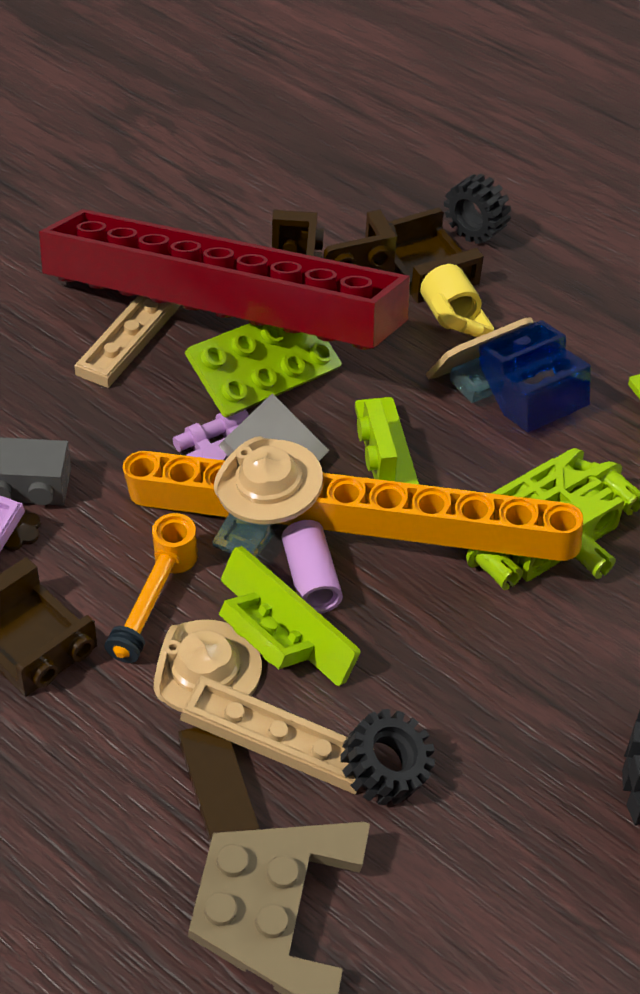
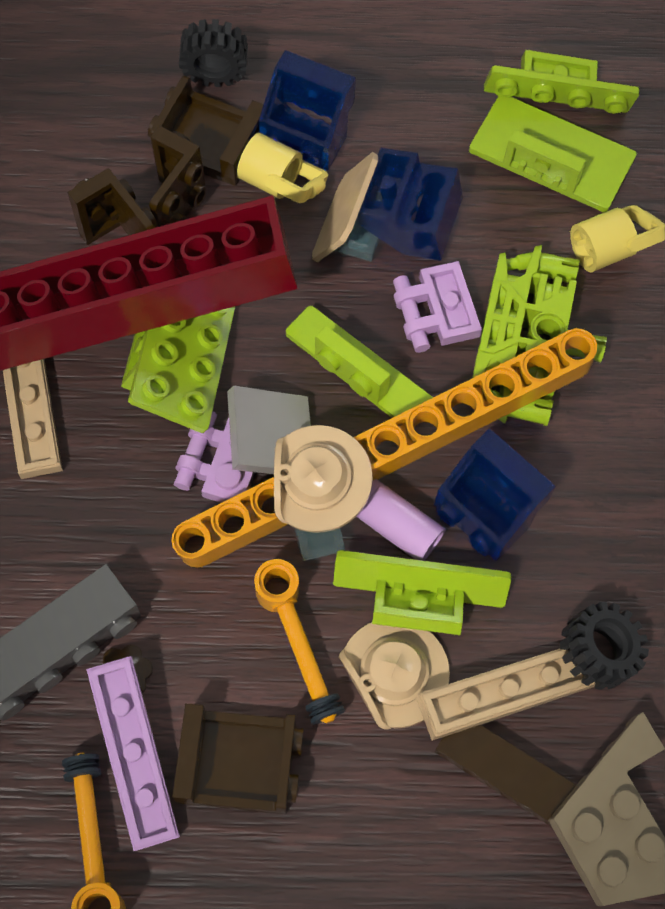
camera: 40 degrees left, 20 degrees up
(398, 591) = (477, 507): none -> clear blue piece
(504, 461) = (449, 304): none -> lavender plate
(528, 260) = (310, 88): none -> clear blue piece

